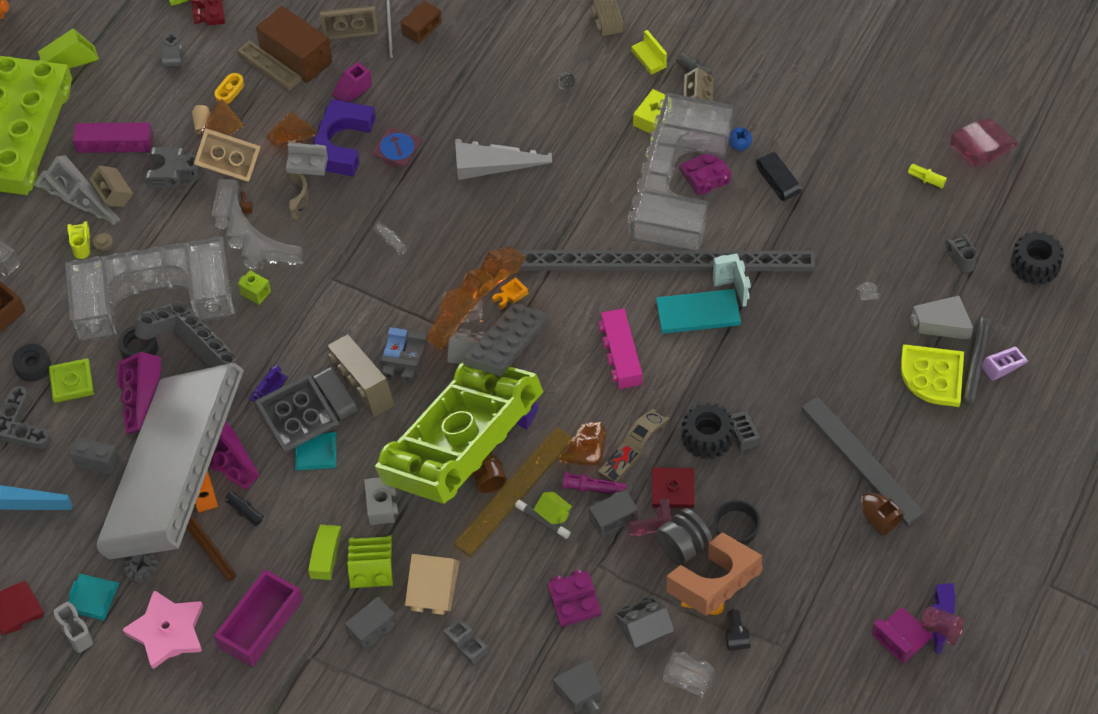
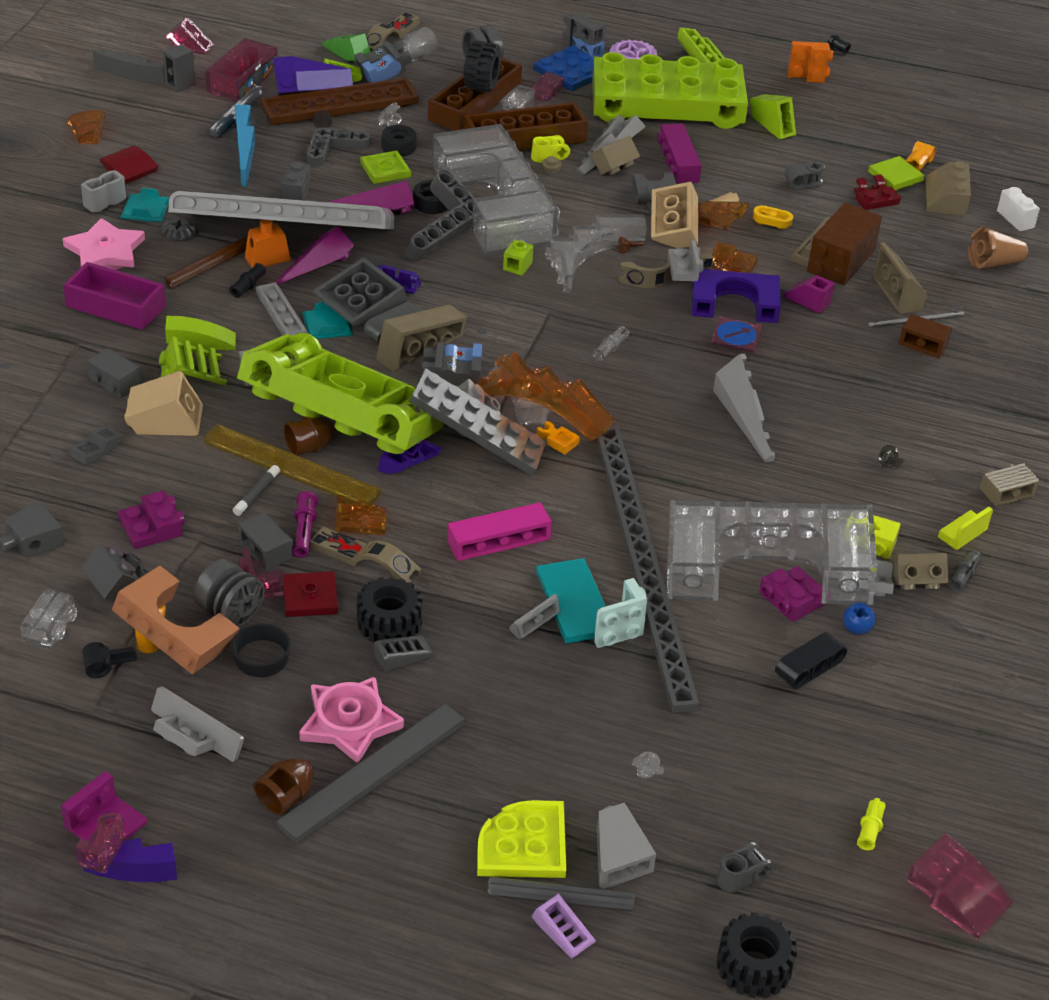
camera: 75 degrees right, 15 degrees down
(46, 251) = (531, 122): none -> reddish brown brick
(294, 485) = (280, 309): none -> light grey tile
(552, 508) = (264, 488): lime brick -> none
(719, 337) = (536, 617): none -> light grey slope
(811, 469) = (349, 717): none -> bright pink plate
(816, 574) = (193, 728): none -> light grey bracket

